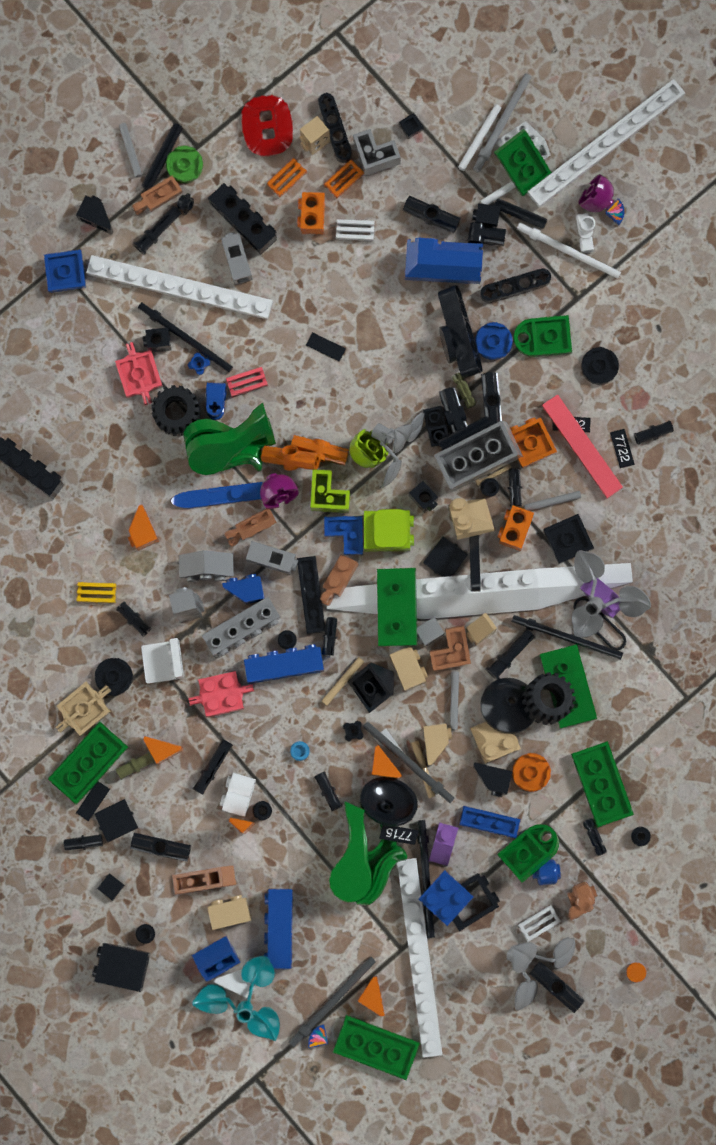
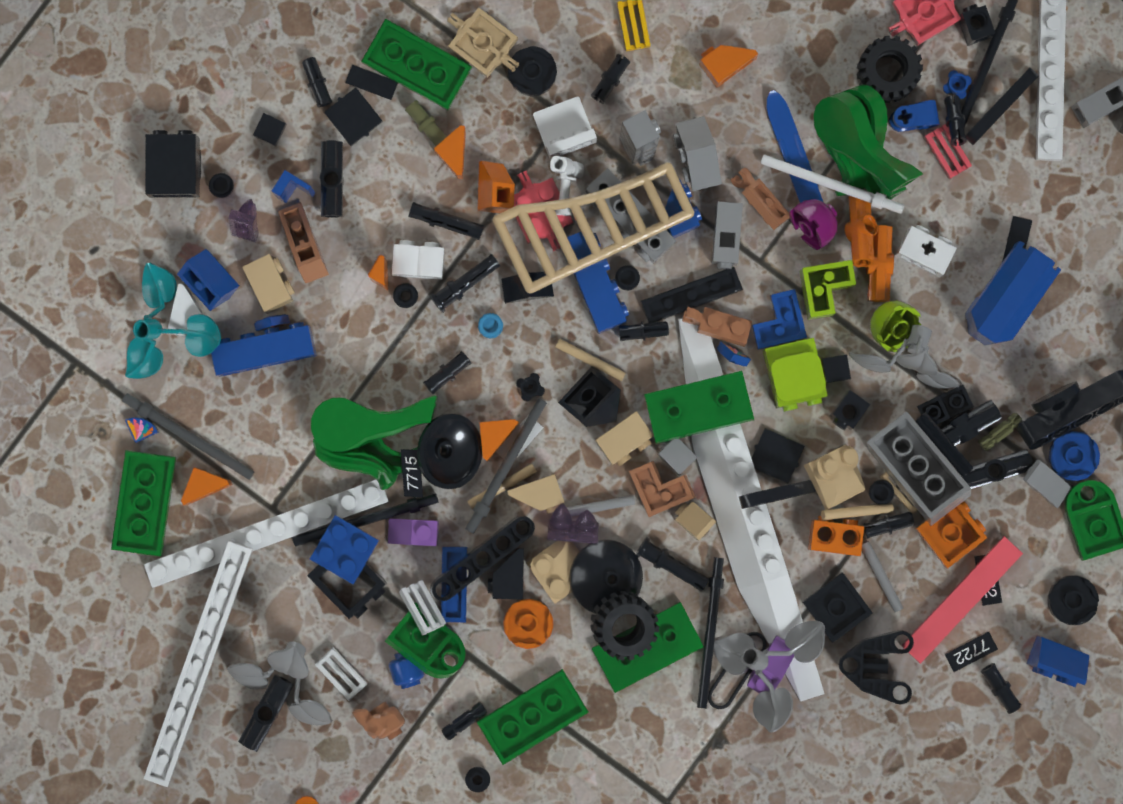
camera: 70 degrees right, 5 degrees up
(157, 881) = (287, 184): none -> blue panel
(178, 920) = (243, 222): none -> clear purple tile
(196, 723) = (494, 188): none -> orange slope
(197, 665) = (568, 171): none -> white bar
(222, 335) = (1001, 106): none -> black beam
(223, 665) = (574, 204): none -> tan bar
(225, 371) = (955, 120): none -> black pin
(259, 917) = (271, 322): none -> blue tile
(266, 771) = (455, 289): none -> black pin
(273, 440) = (878, 200): none -> white bar
(276, 716) = (514, 290): none -> black slope
(327, 408) = (912, 251): none -> white brick
(362, 574) = (732, 354): none -> blue tile
(365, 360) = (1010, 295): none -> blue brick
(390, 499) = (836, 368): none -> black tile
(465, 729) = (564, 529): none -> clear purple tile
(474, 805) = (494, 555): none -> black beam
(500, 508) = (857, 511): none -> tan bar
(502, 845) = (421, 587): none -> white tile
(508, 1031) = (198, 663): none -> white plate
(509, 365) = (1047, 483): none -> light grey slope
(602, 514) = (877, 644): none -> black connector
(641, 386) = (1054, 658): none -> blue slope

